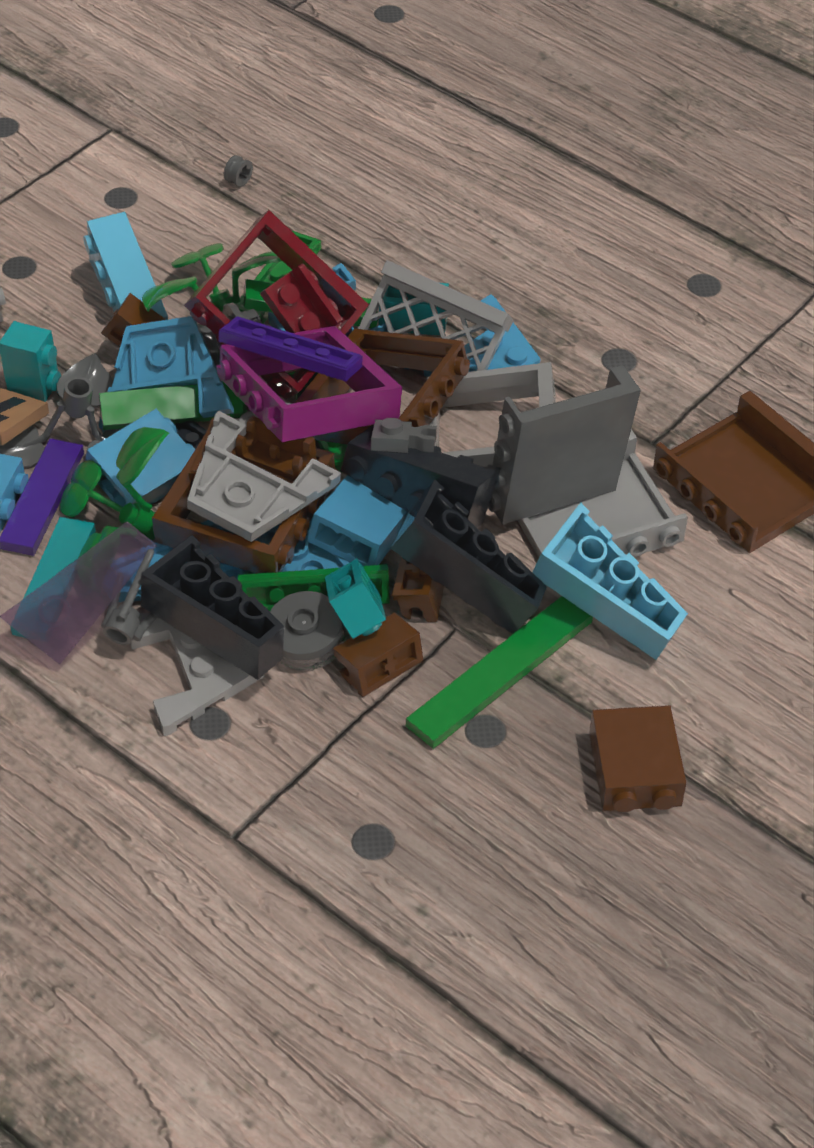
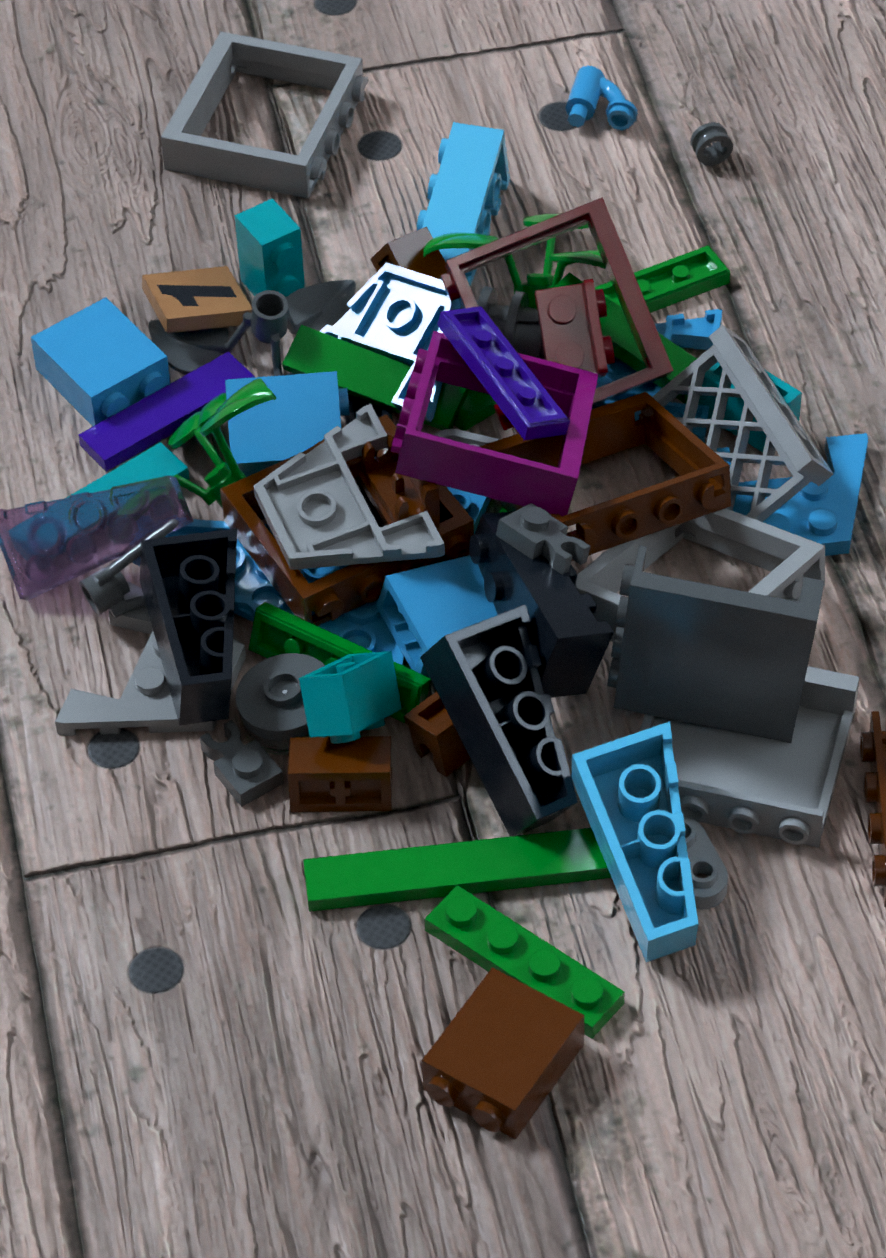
camera: 40 degrees right, 0 degrees up
(129, 176) = (584, 96): none -> dark azure plant
(308, 687) = (243, 769): none -> dark grey plate
(577, 698) = (501, 943): none -> green plate

